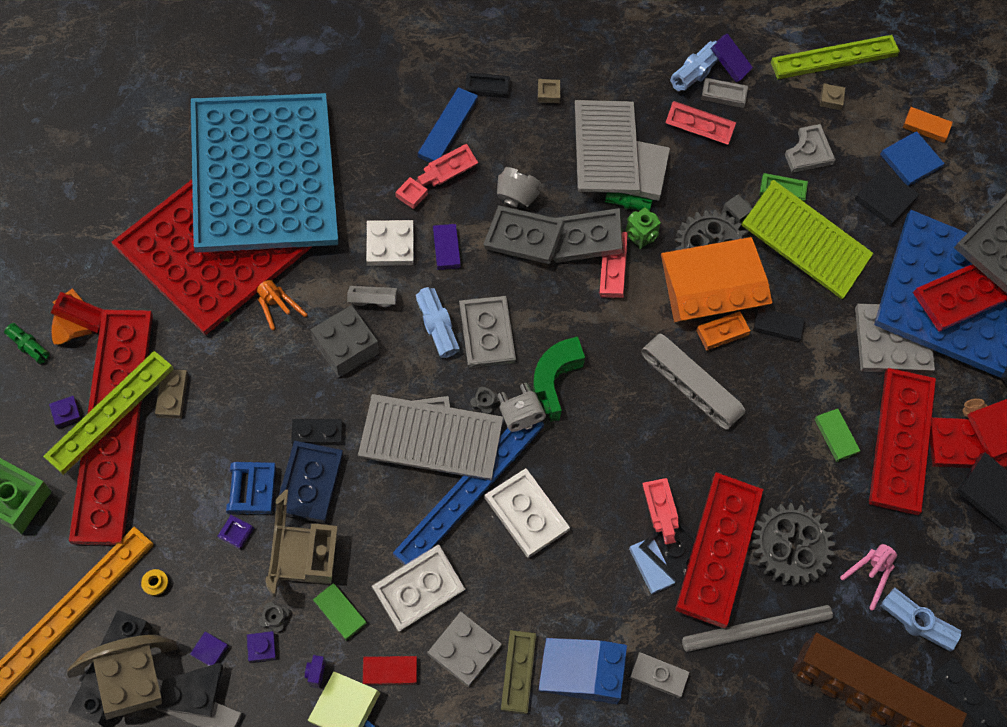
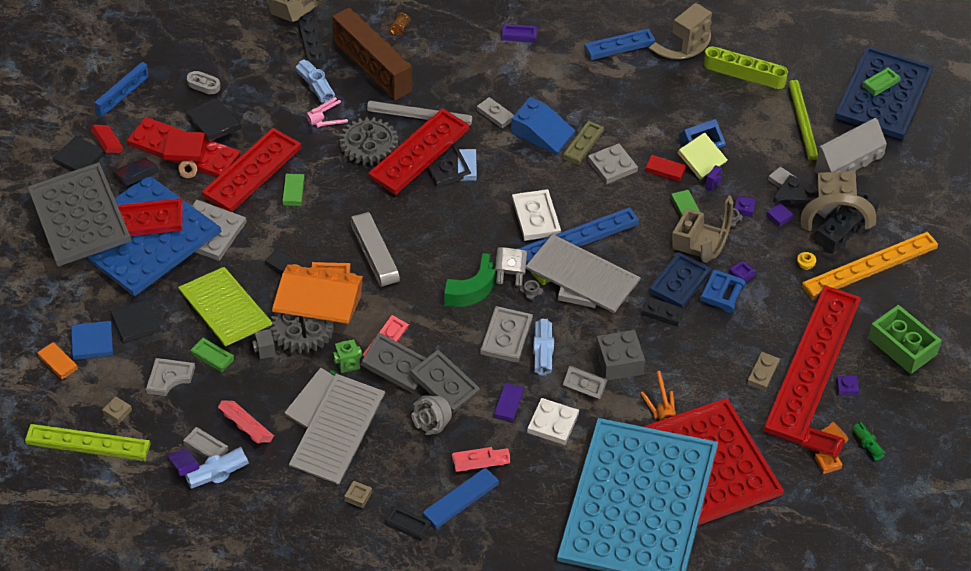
camera: 155 degrees left, 15 degrees down
(108, 413) = (813, 359): lime plate -> none
(411, 193) = (519, 449): coral plate -> none
(418, 587) = (629, 197): white tile -> none
(661, 508) = (444, 183): coral hinge -> none

